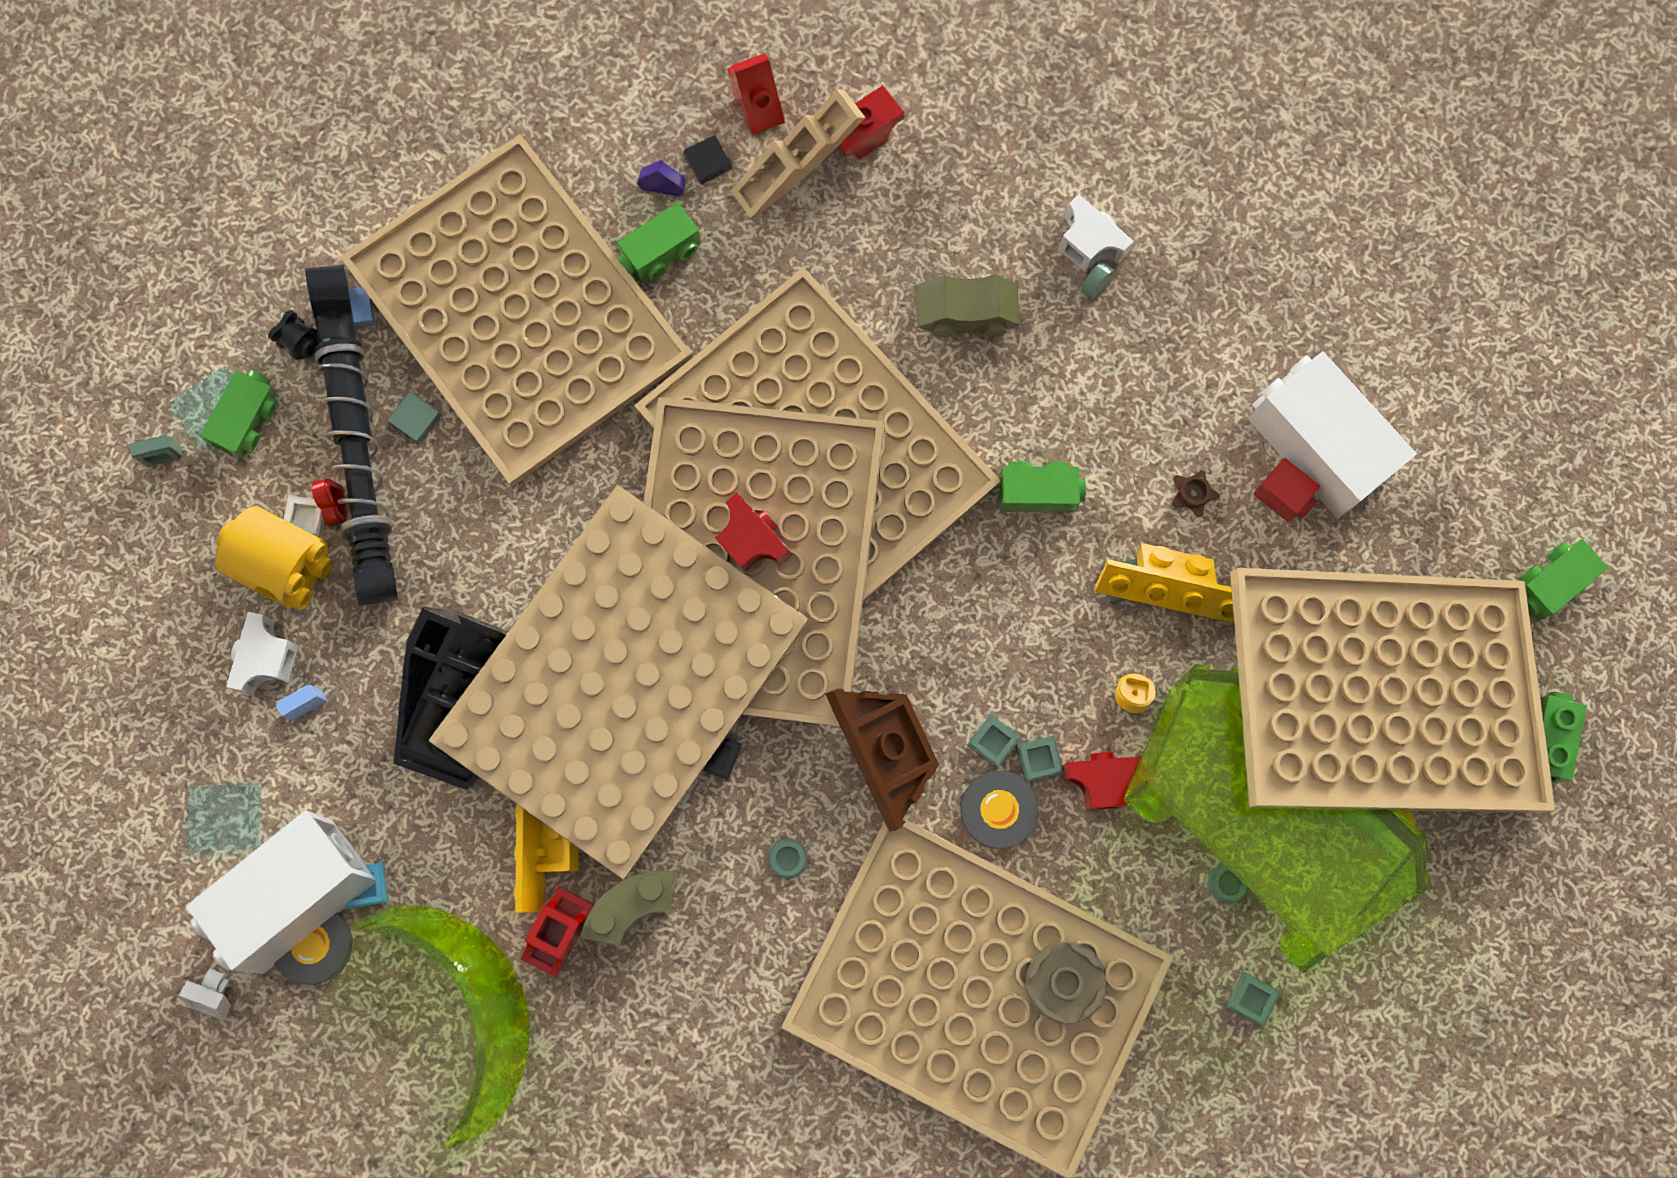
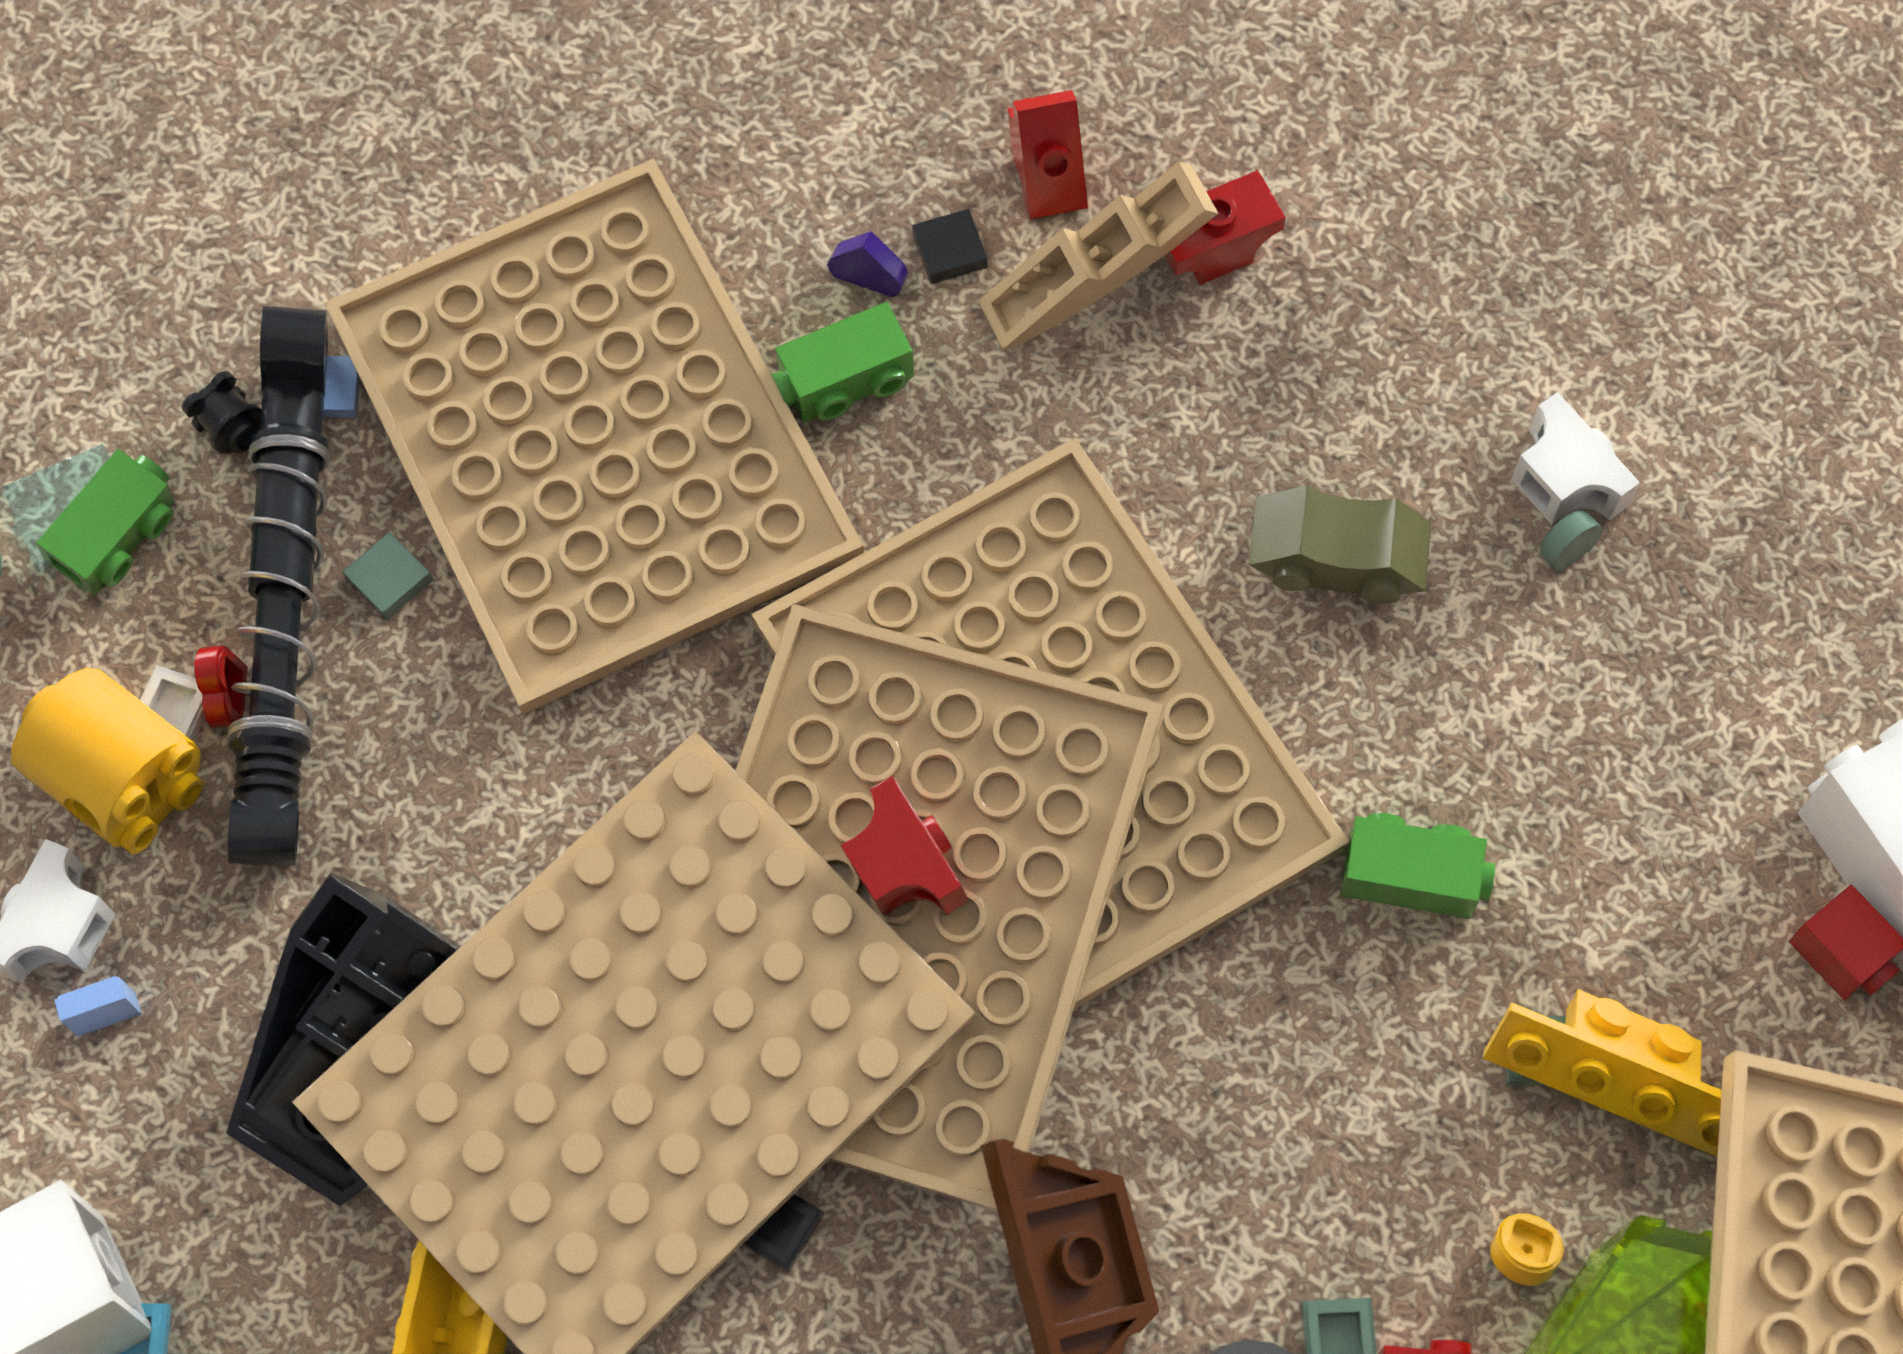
camera: 15 degrees right, 10 degrees down
(994, 741) = (1263, 1289): sand green tile -> none
(1201, 485) = (1697, 909): reddish brown plate -> none

